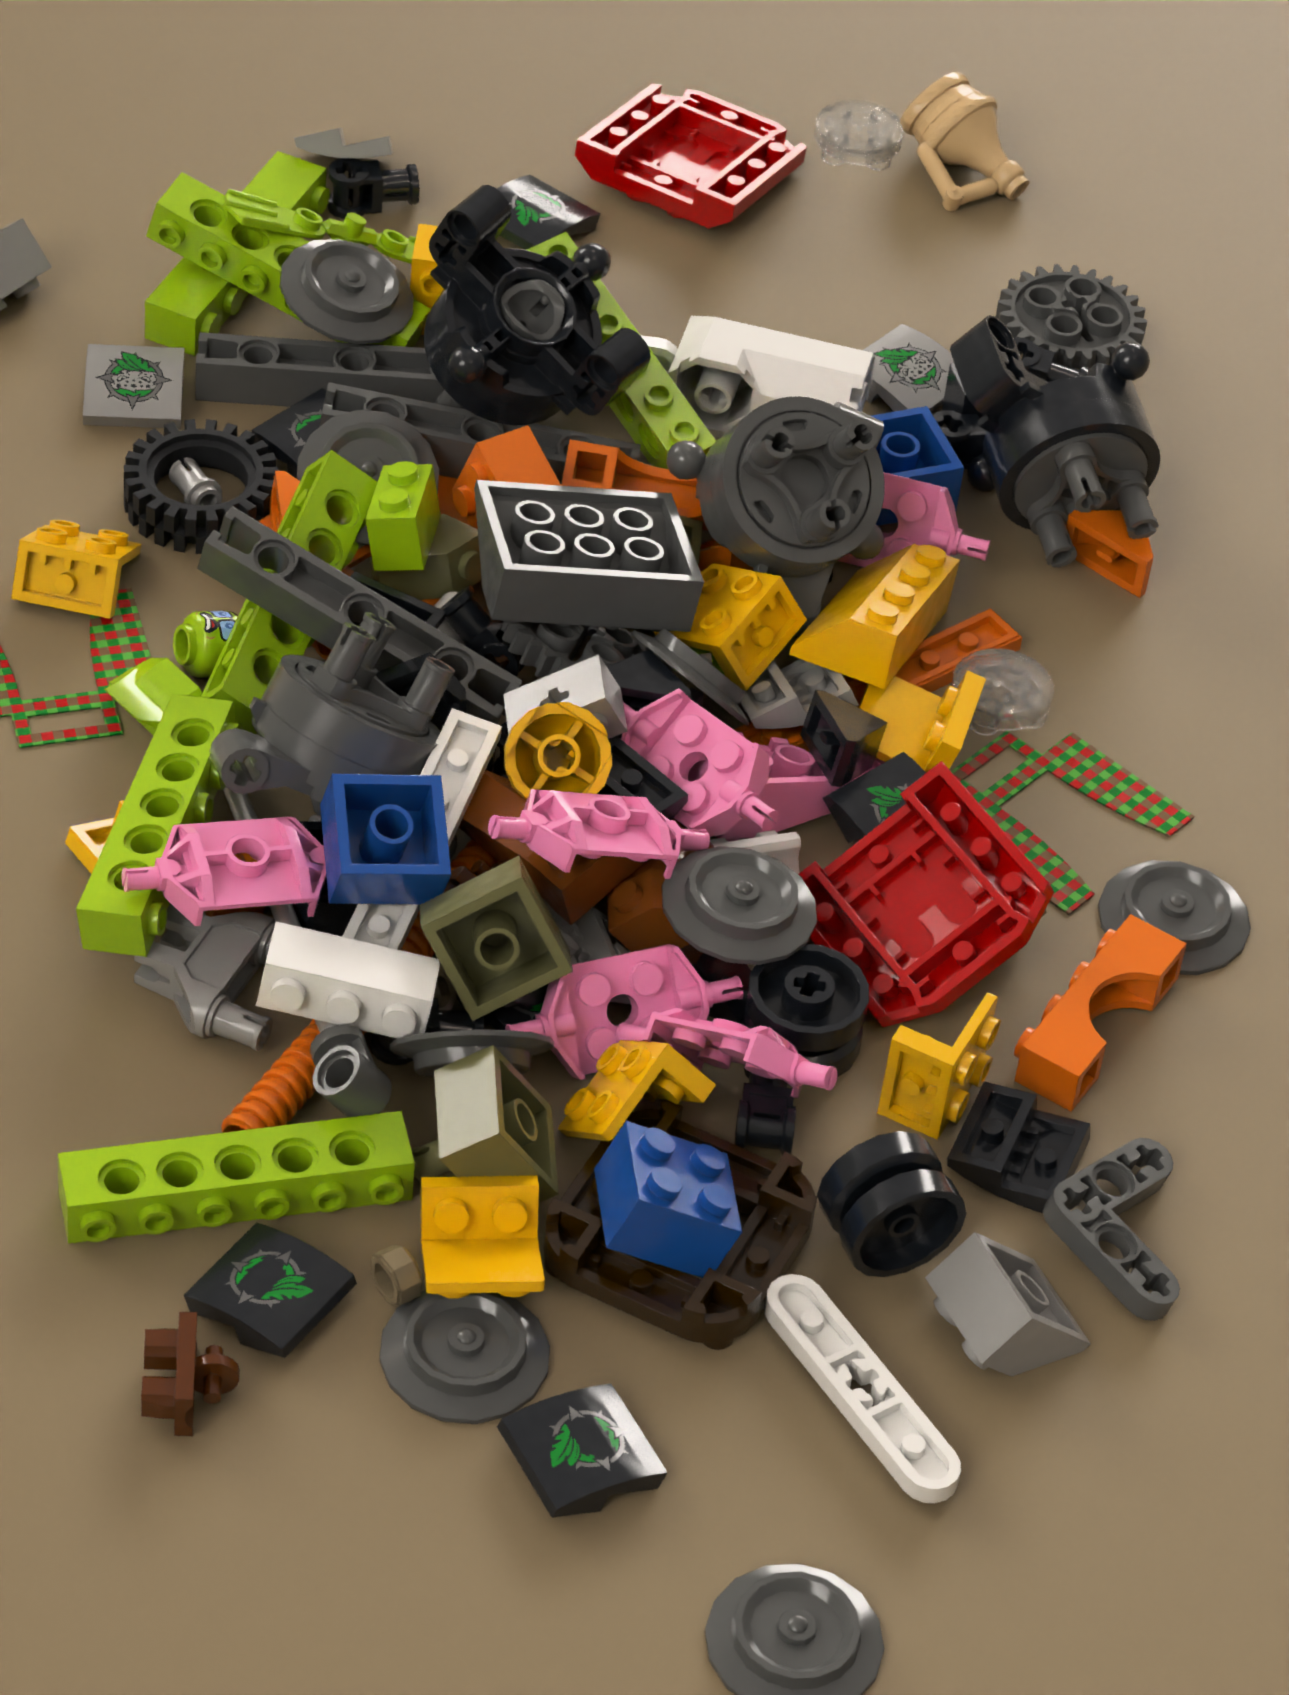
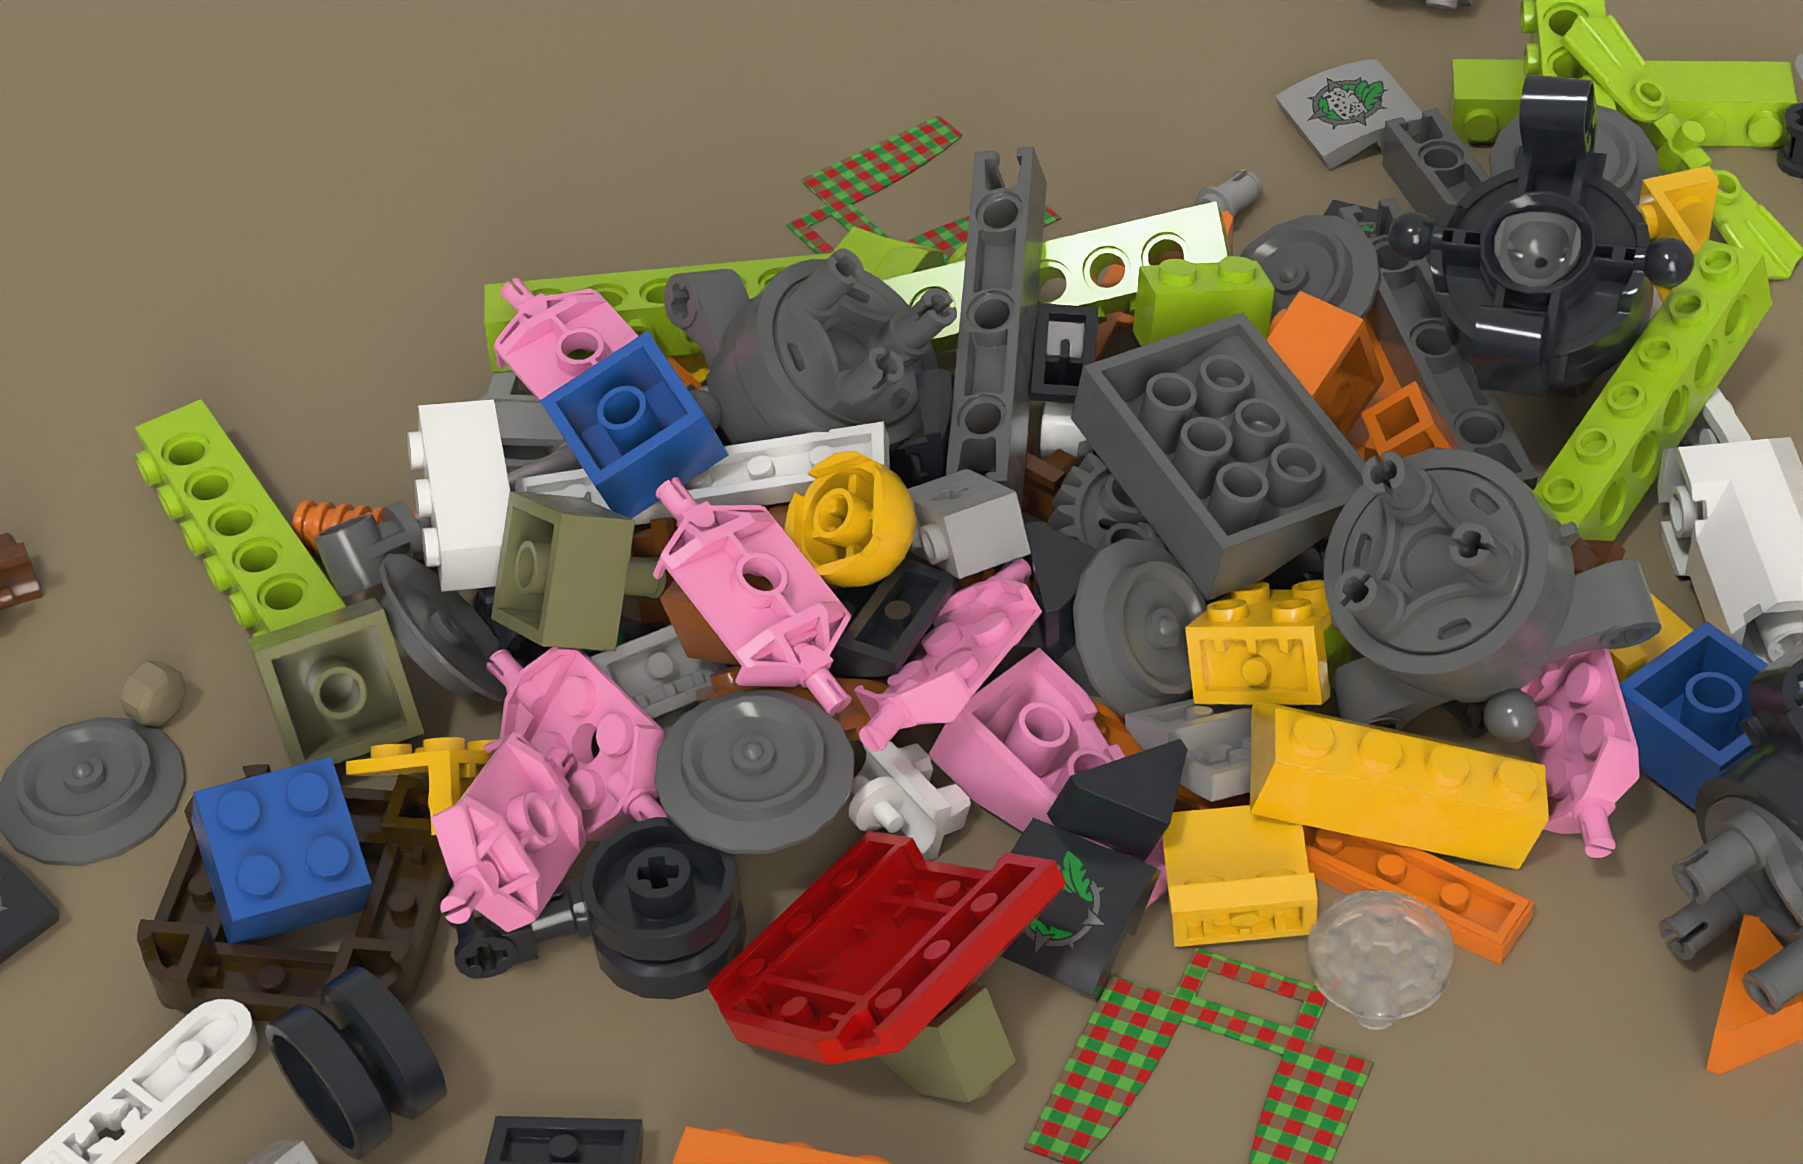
camera: 80 degrees right, 0 degrees up
(72, 568) = (1069, 151): yellow bracket -> none
(210, 449) = (1216, 160): black tyre -> none
(270, 1289) = (110, 613): black slope -> none
(480, 1235) = (197, 743): yellow bracket -> none
(930, 1080) = (617, 1067): yellow bracket -> none

